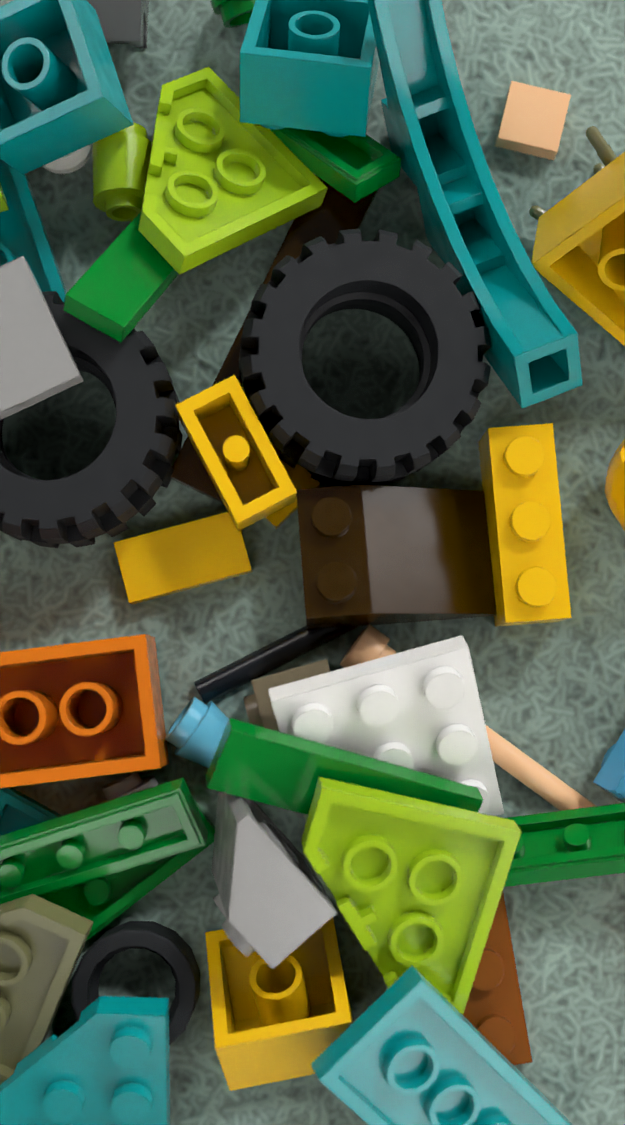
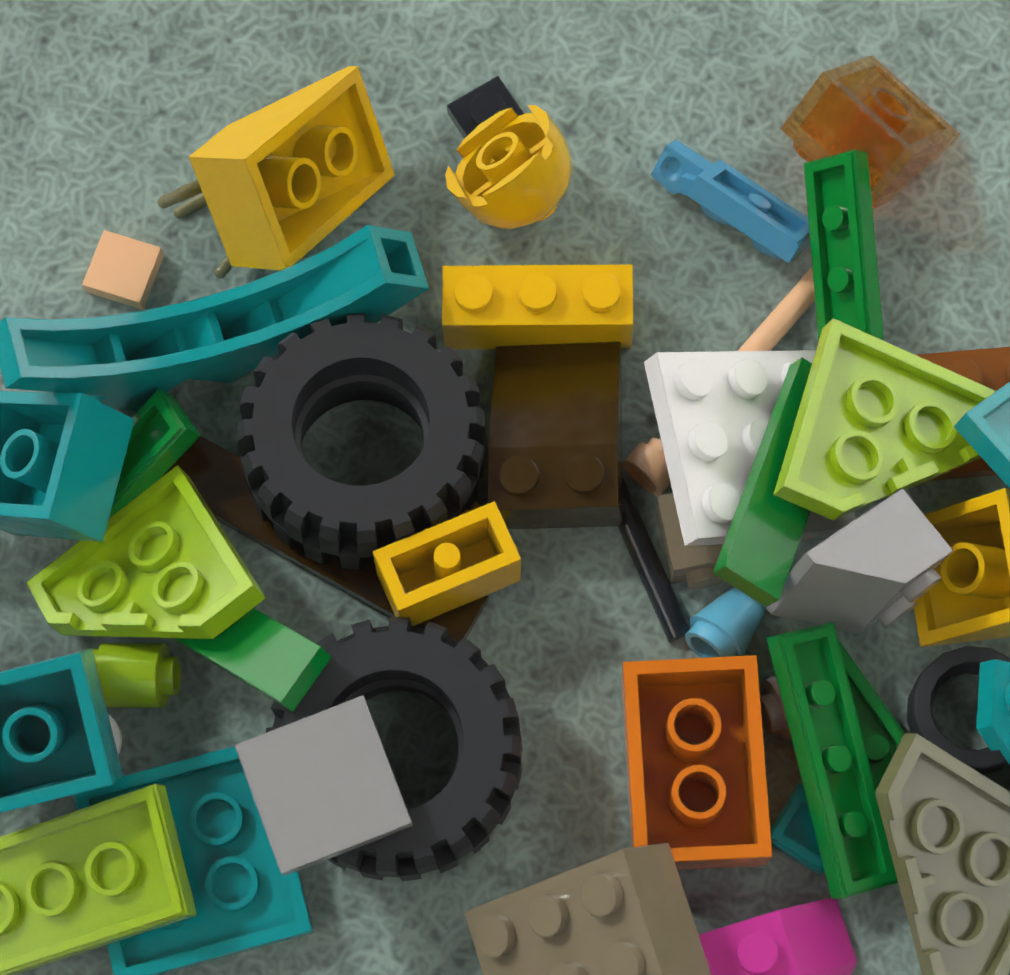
camera: 80 degrees left, 10 degrees down
(182, 557) = (541, 643): yellow tile -> none

